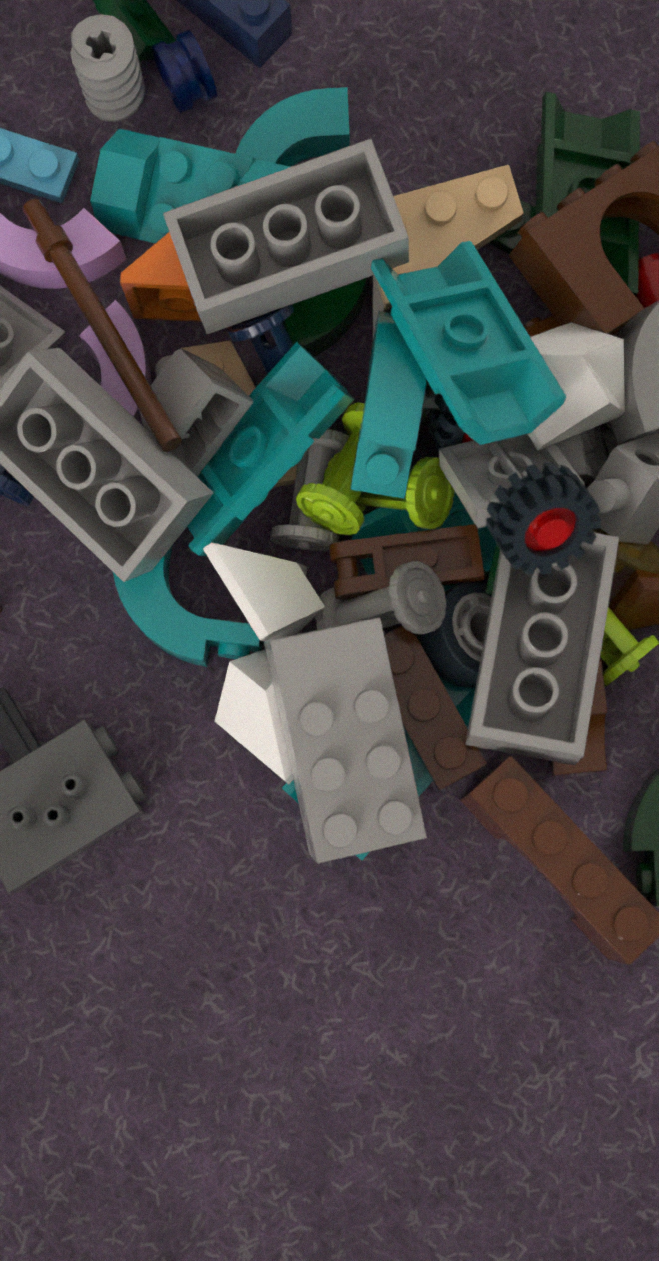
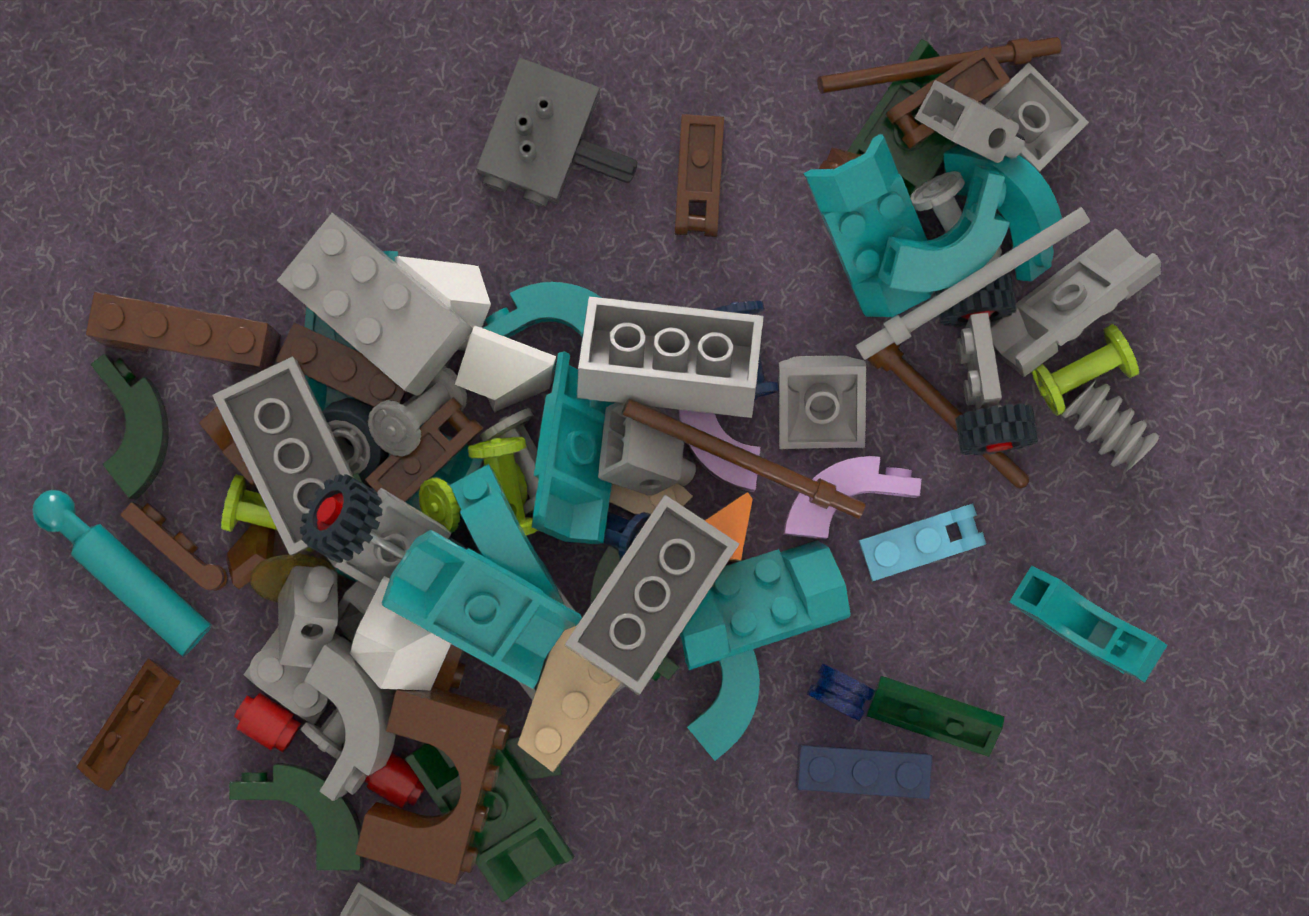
camera: 135 degrees right, 5 degrees up
(107, 67) = (903, 659): light grey piece -> none

